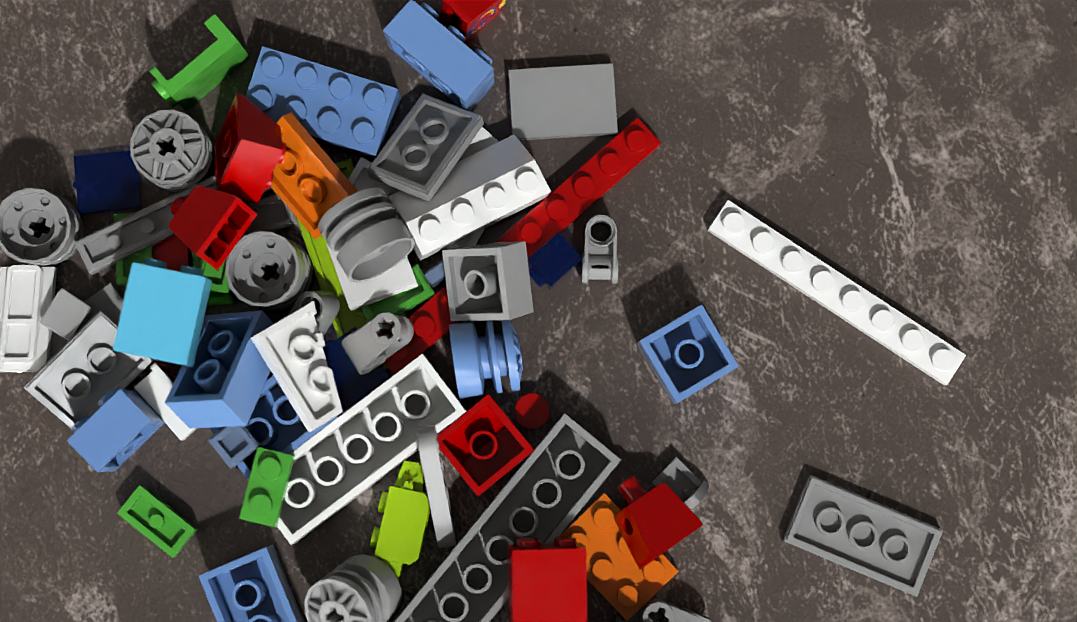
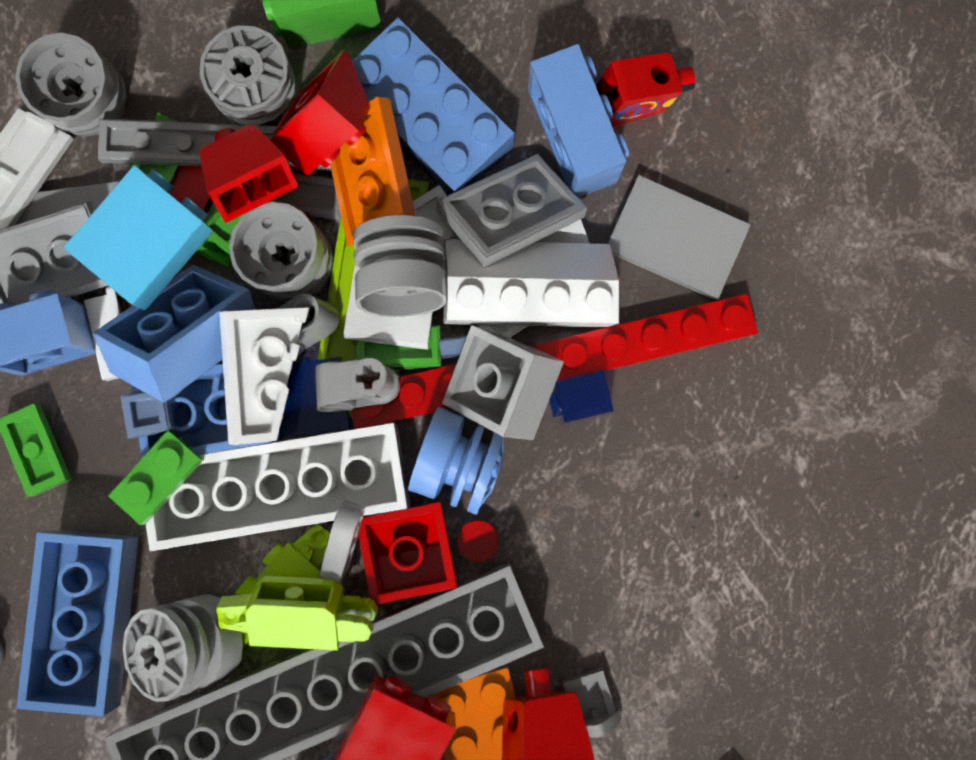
camera: 30 degrees right, 0 degrees up
(66, 314) = (52, 189): light grey slope -> none
(106, 182) = (168, 79): clear blue piece -> none
(426, 530) = (298, 614): none -> lime hinge
(600, 253) = (635, 414): light grey piece -> none
(687, 354) = (672, 571): medium blue brick -> none
(837, 293) = (862, 588): white plate -> none

